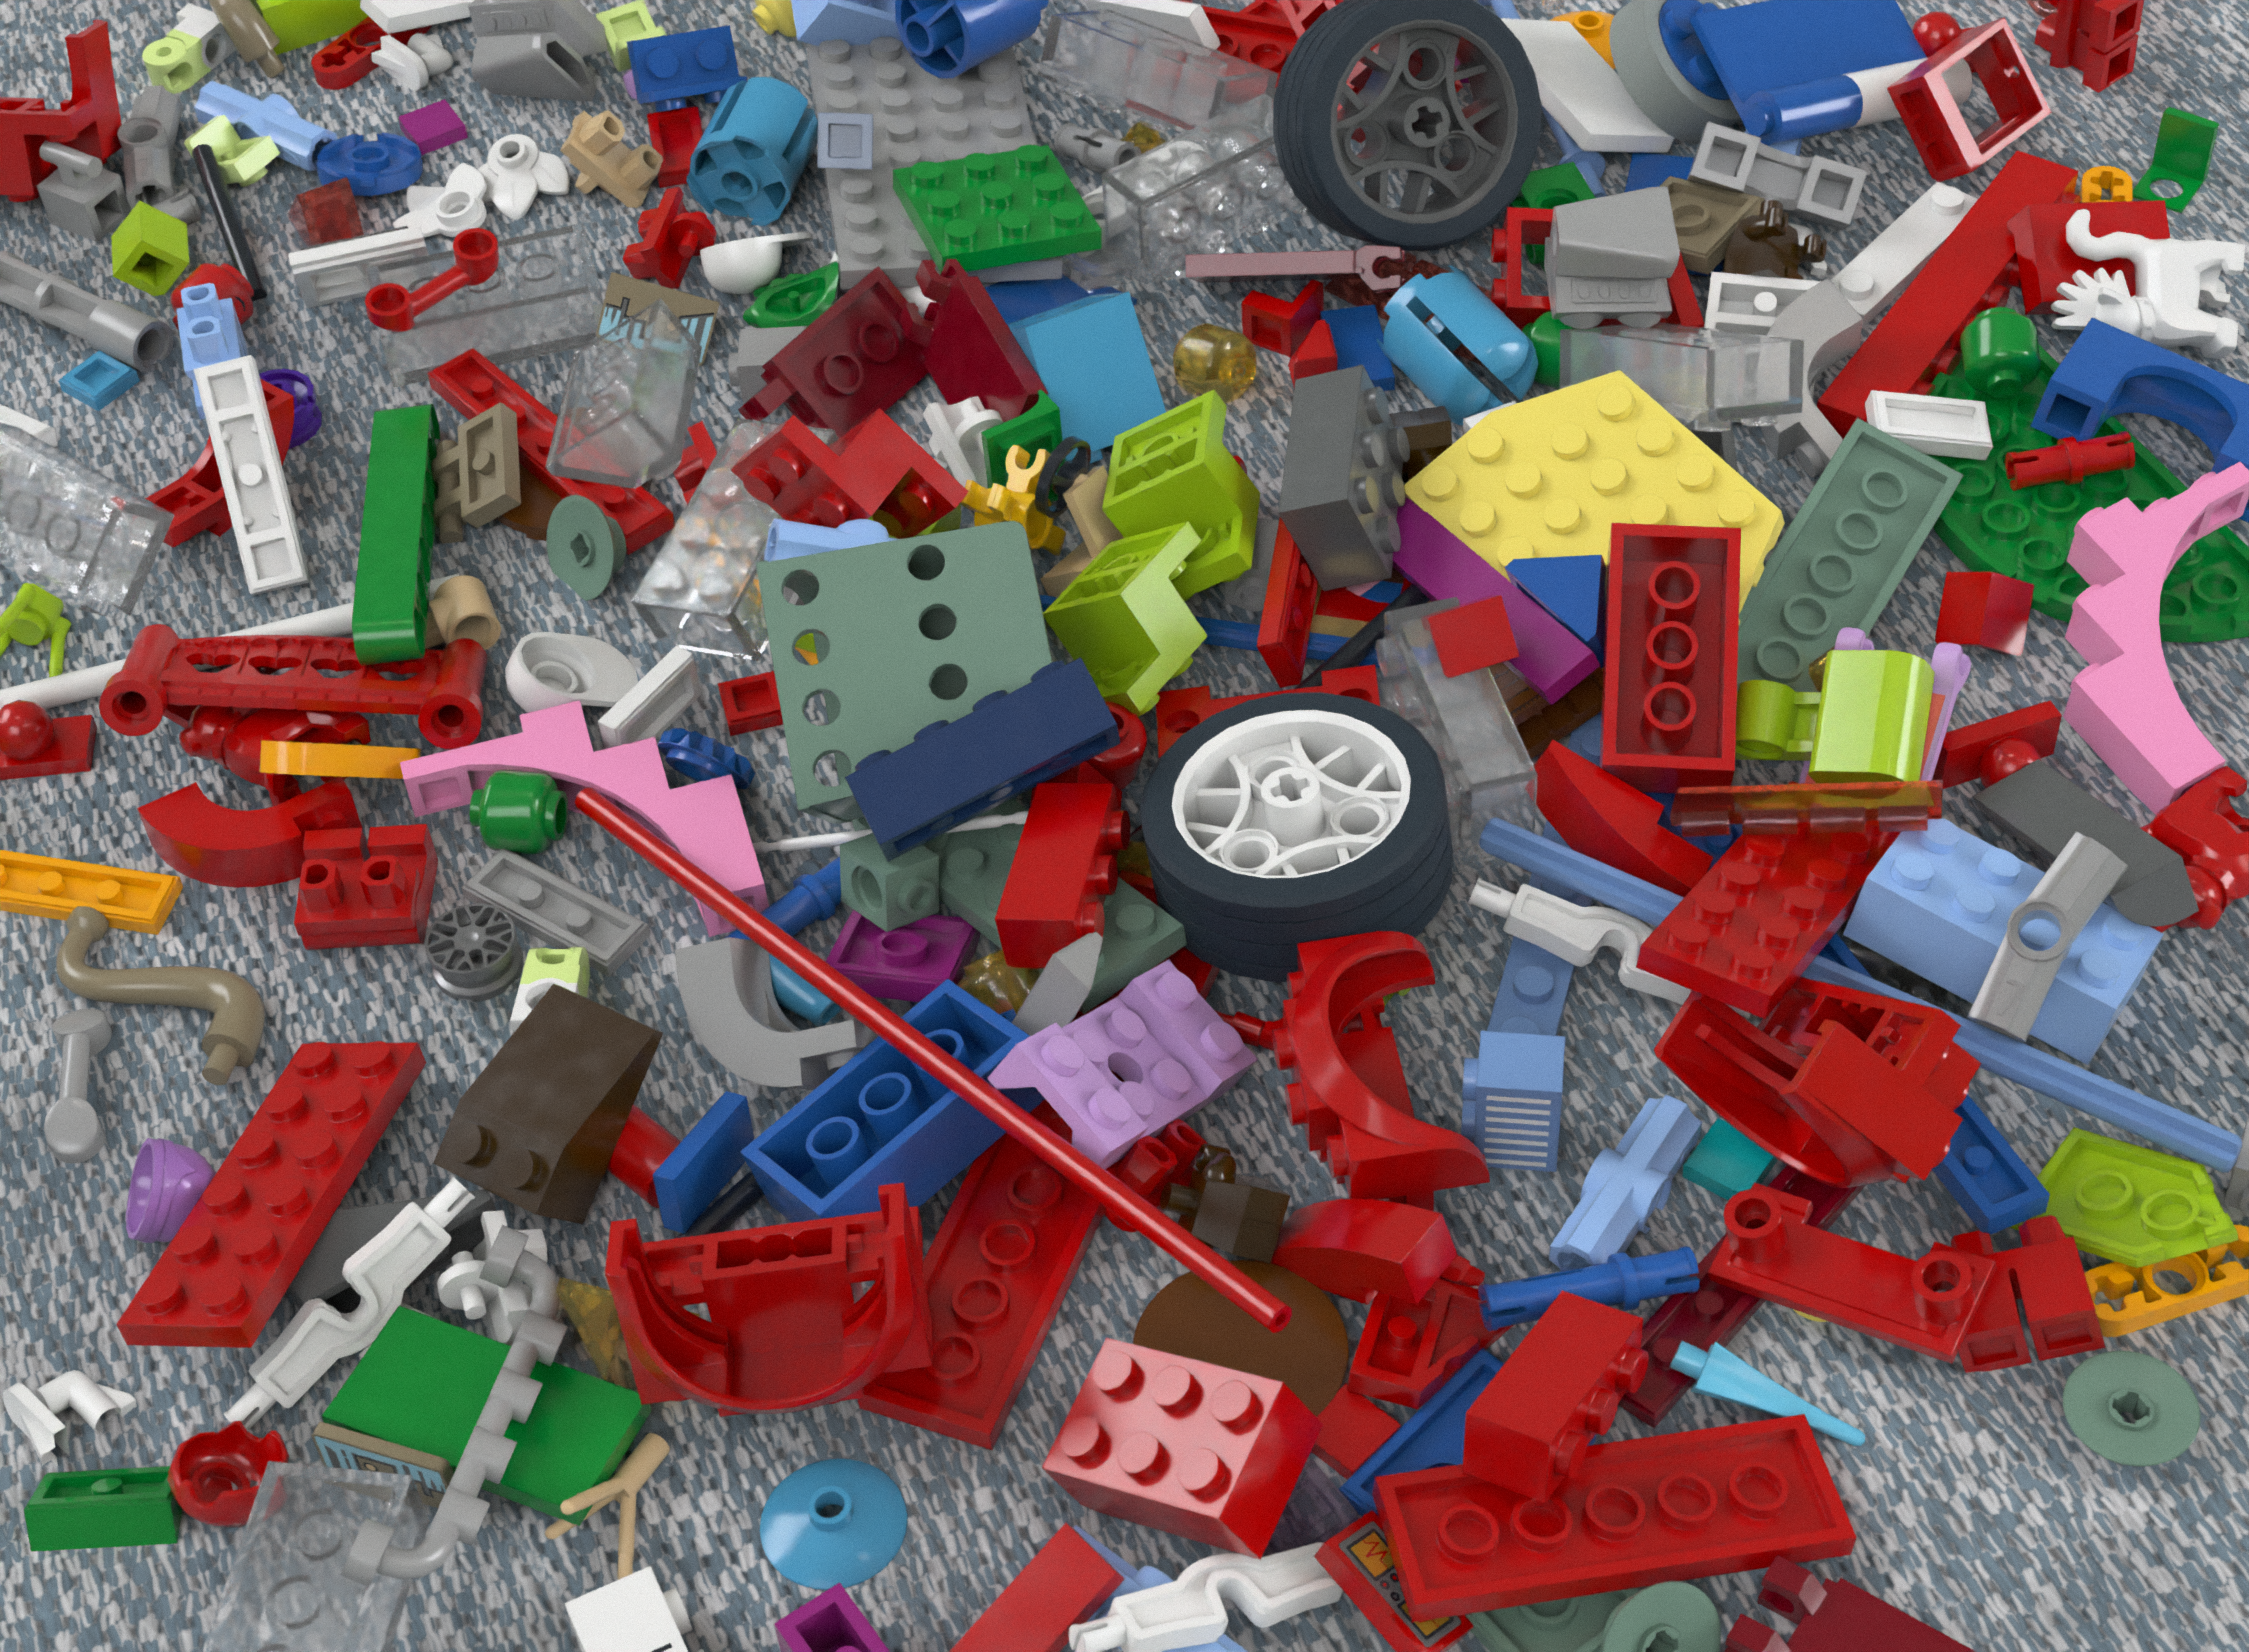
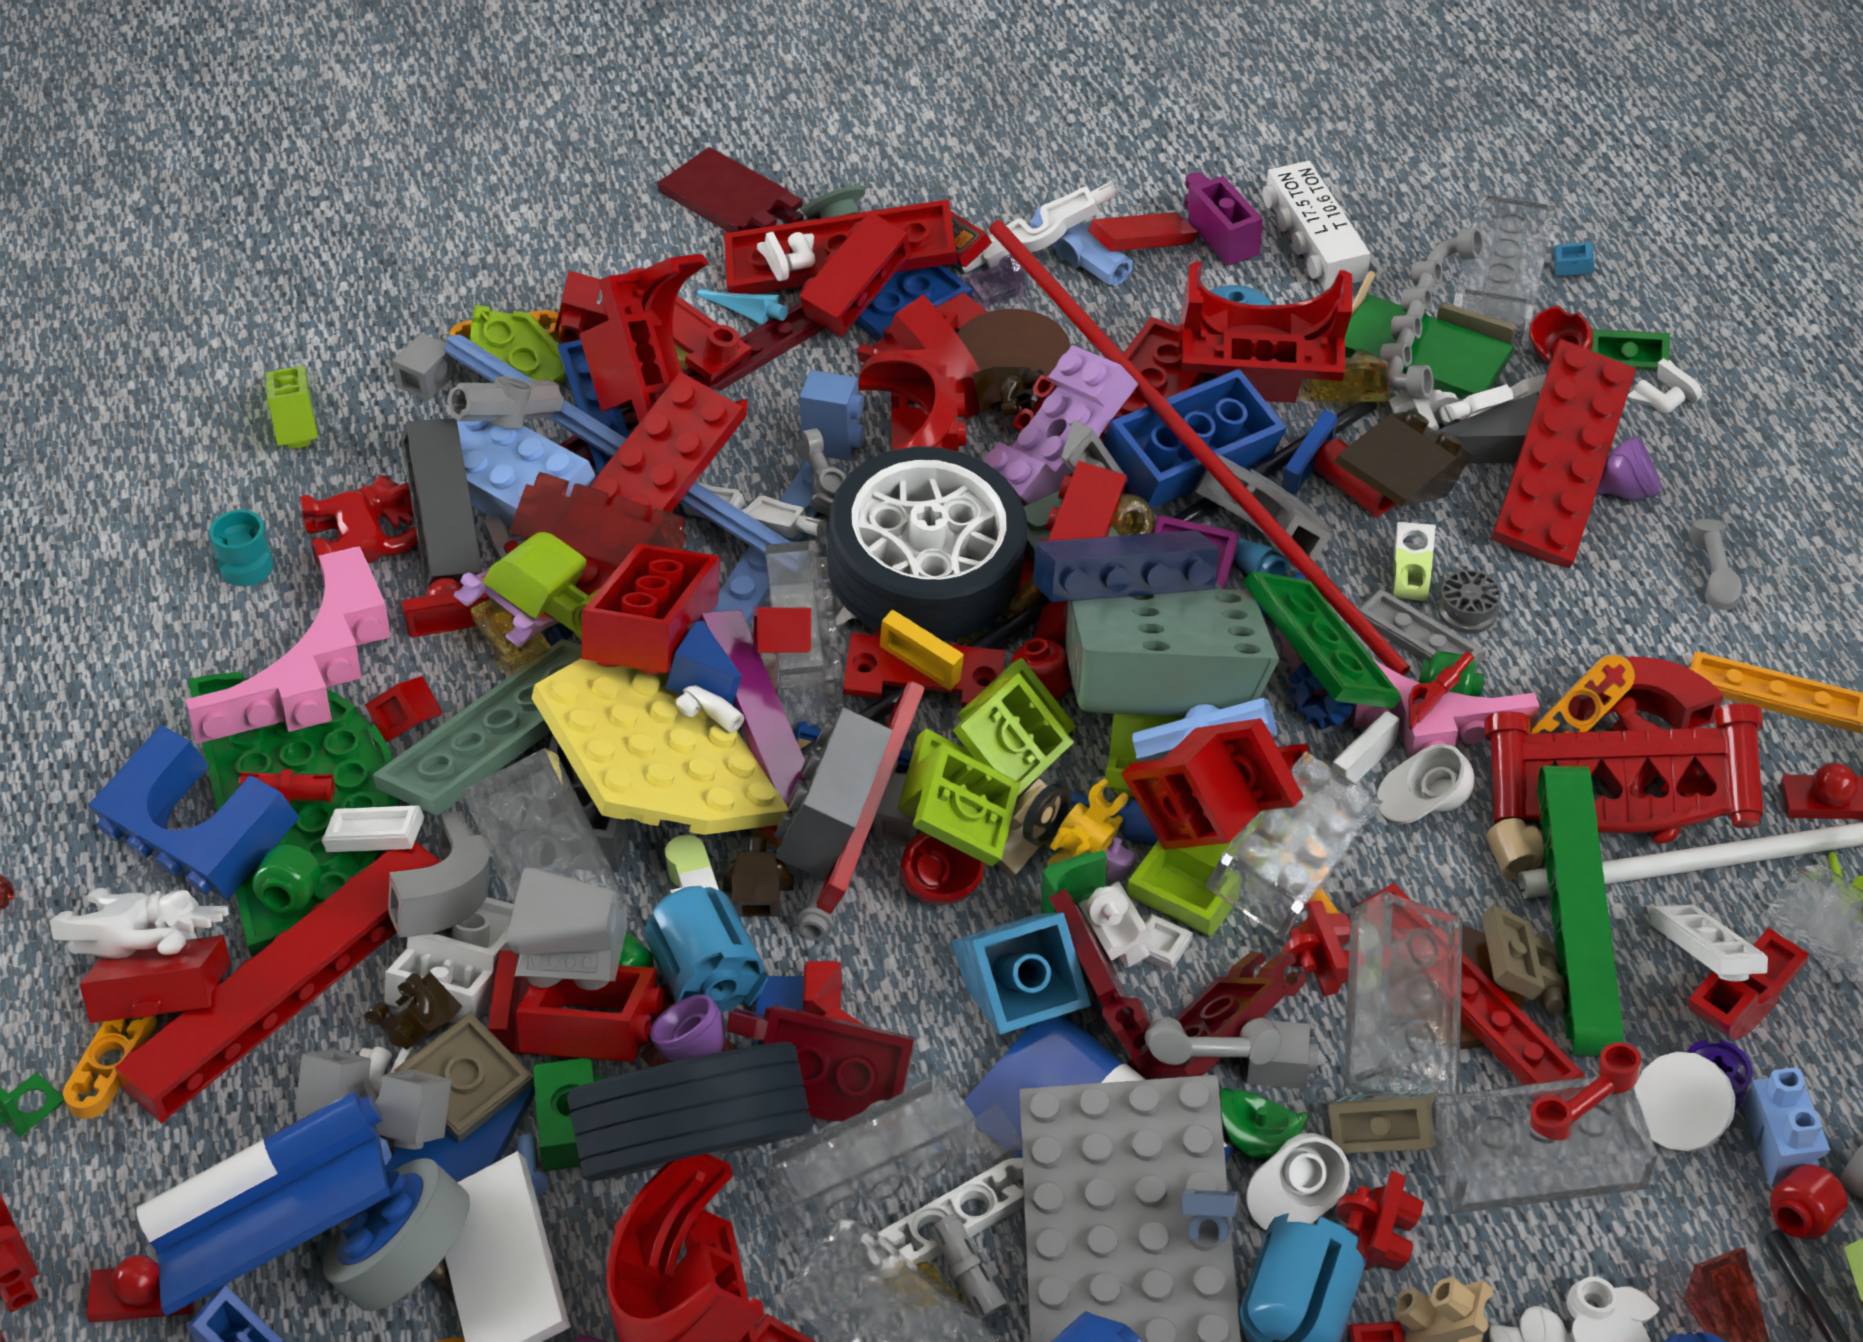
camera: 175 degrees left, 0 degrees up
(236, 1004) = (1620, 587): dark tan animal -> none
(321, 362) = (1685, 1101): none -> white tile
(338, 268) = (1665, 1185): white piece -> none
(364, 891) = (1549, 637): red hips -> none
(546, 740) = (1435, 691): none -> red hand
(584, 546) = (1421, 886): sand green piece -> none
(700, 759) = (1322, 640): none -> green tile
(794, 307) = (1170, 1044): none -> light grey bar
(996, 208) = (1074, 1127): green plate -> none
(1183, 1446) = (1065, 256): brick -> none
(1215, 360) = (903, 1000): clear yellow head -> none
(1246, 677) = (921, 650): none -> yellow tile
(1447, 242) = (689, 1029): none -> medium lavender helmet
(1478, 996) = (825, 478): none -> light grey piece
(1558, 544) = (711, 704): none -> white arm
(1614, 822) = (737, 568): red slope -> none
(1616, 1283) = (819, 337): blue pin -> none
(1627, 1185) = (778, 395): light blue piece -> none
(1670, 1444) = (779, 262): none -> white piece
(1902, 250) = (279, 1061): white plate -> none
(1935, 118) = (159, 1160): red window -> none
(2137, 1384) = (551, 269): sand green piece -> none

